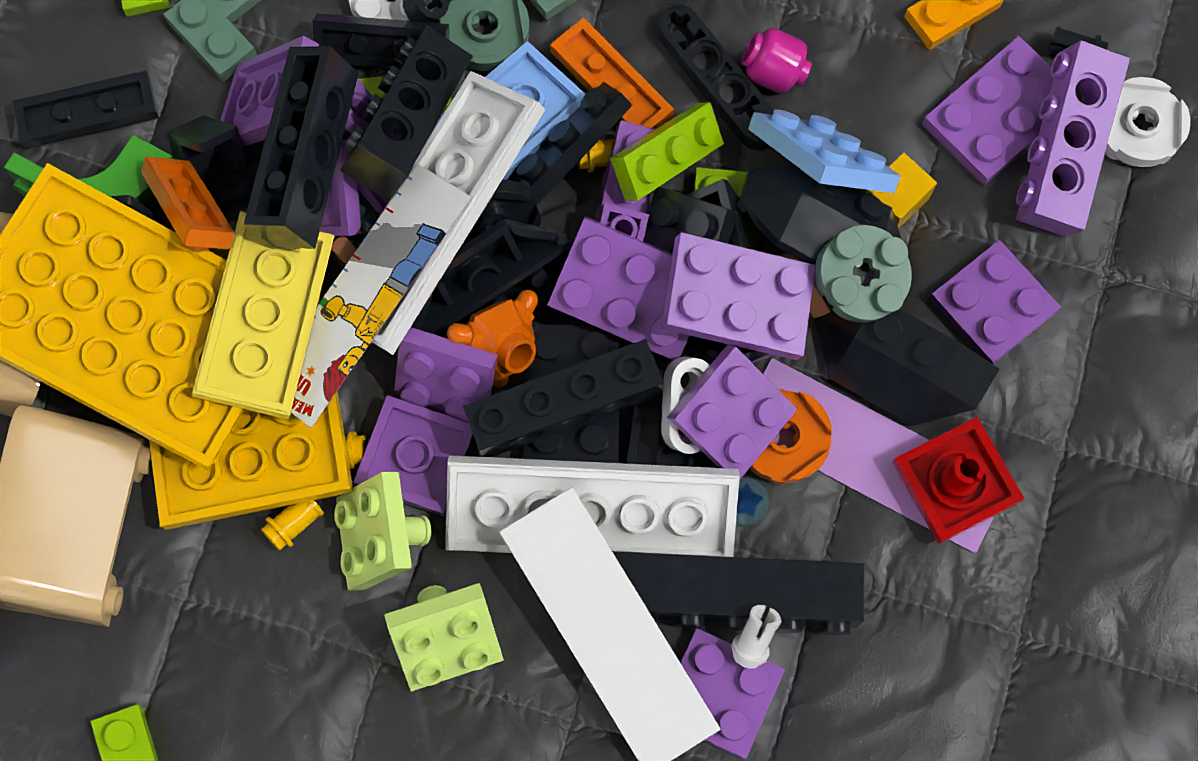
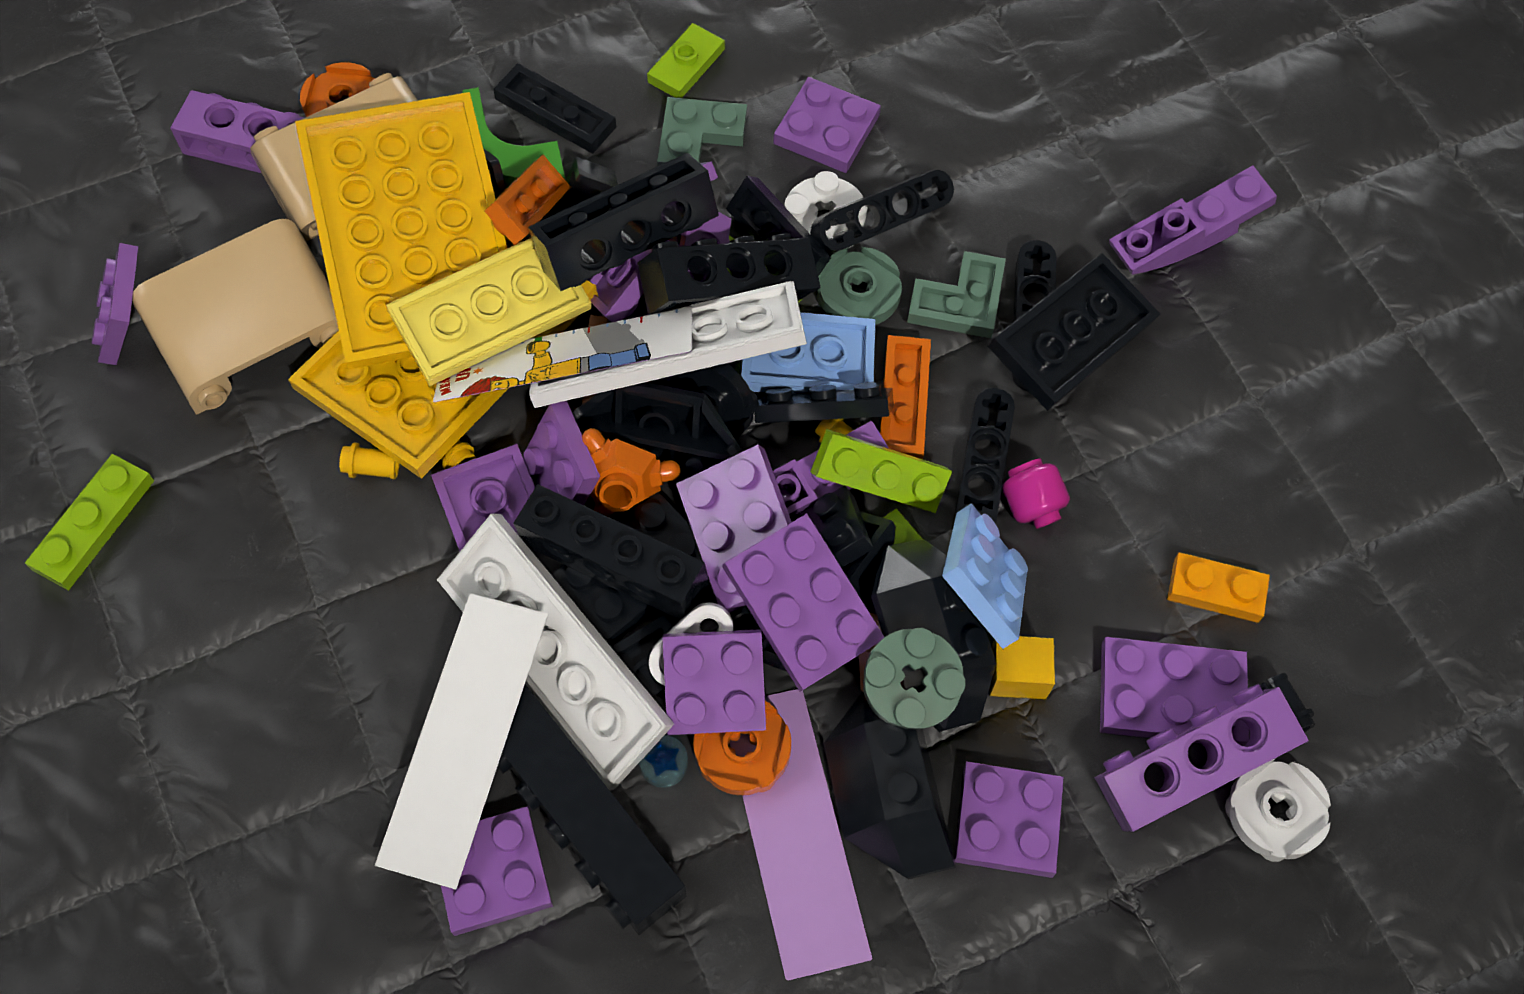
camera: 50 degrees right, 10 degrees down
(376, 531) = (404, 518): yellowish green plate -> none
(443, 635) = (359, 624): yellowish green plate -> none
(751, 646) = (542, 855): white pin -> none
(958, 480) = (829, 910): red plate -> none

